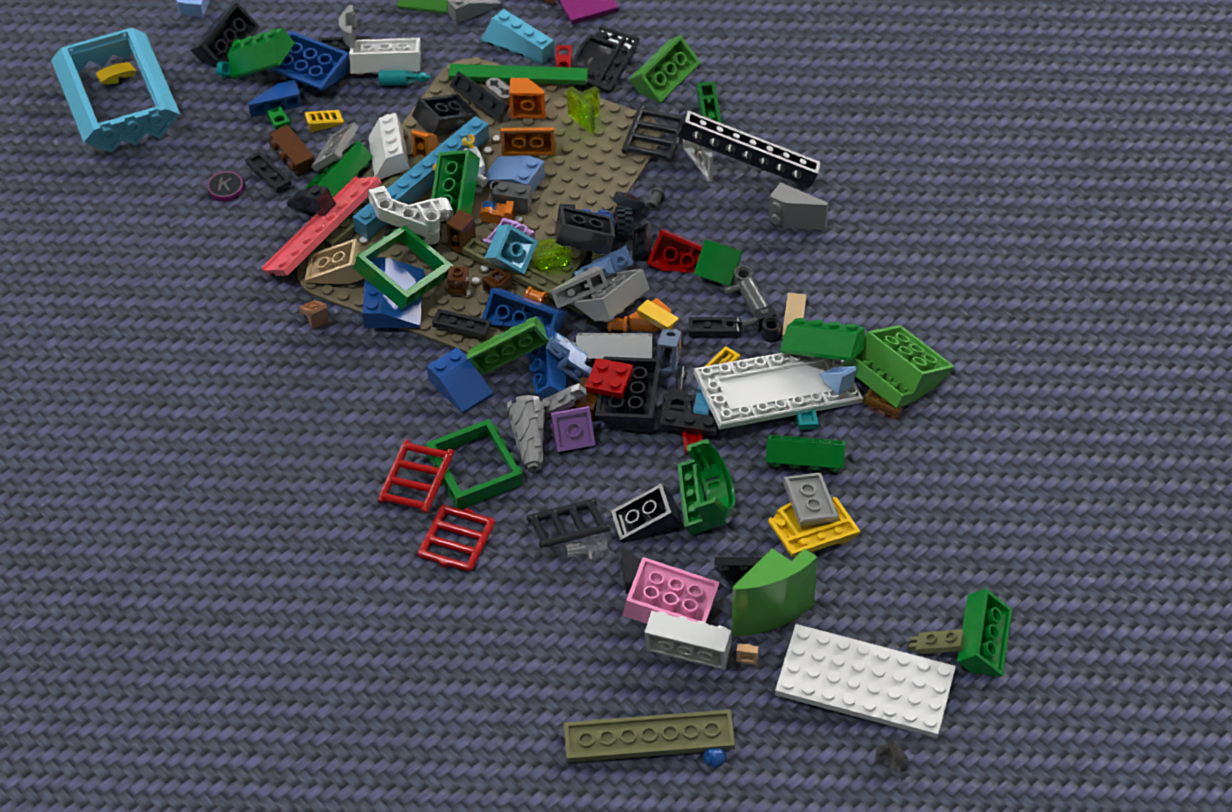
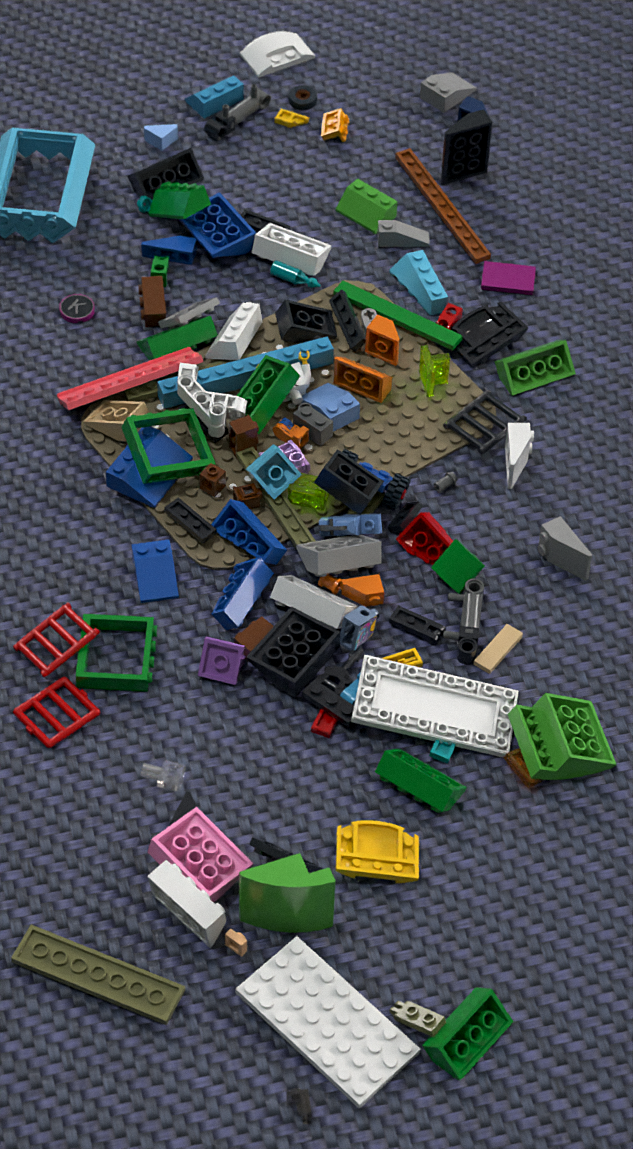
camera: 25 degrees right, 0 degrees up
(112, 73) = (47, 168): yellow slope -> none
(268, 172) = (120, 311): black plate -> none
(313, 199) = (138, 353): black slope -> none
(316, 313) = (72, 455): nougat slope -> none
(318, 120) = (194, 284): yellow slope -> none
(347, 22) = (275, 205): light grey slope -> none
(423, 142) = (267, 340): orange slope -> none
(508, 345) = (212, 558): bright green slope -> none
(527, 426) = (184, 639): light grey cone -> none
(536, 295) = (272, 524): orange bush -> none
(563, 399) = (229, 629): light grey hinge -> none
(571, 357) = (262, 594): medium blue plate -> none
(572, 510) = (153, 731): black bar -> none
(579, 286) = (310, 532): light grey slope -> none
(609, 378) = (281, 628): red plate -> none
(626, 199) = (416, 473): black bush -> none
(646, 515) = (235, 770): black slope -> none
(657, 315) = (366, 590): yellow slope -> none
(708, 100) = (551, 419): green slope -> none
(714, 757) = (144, 1023): blue piece -> none
(719, 492) = (280, 789): green piece -> none
(748, 149) = (552, 472): black brick -> none
(810, 499) = (390, 826): light grey tile -> none
(823, 339) = (501, 682): green slope -> none
(839, 378) = (493, 725): light blue slope -> none

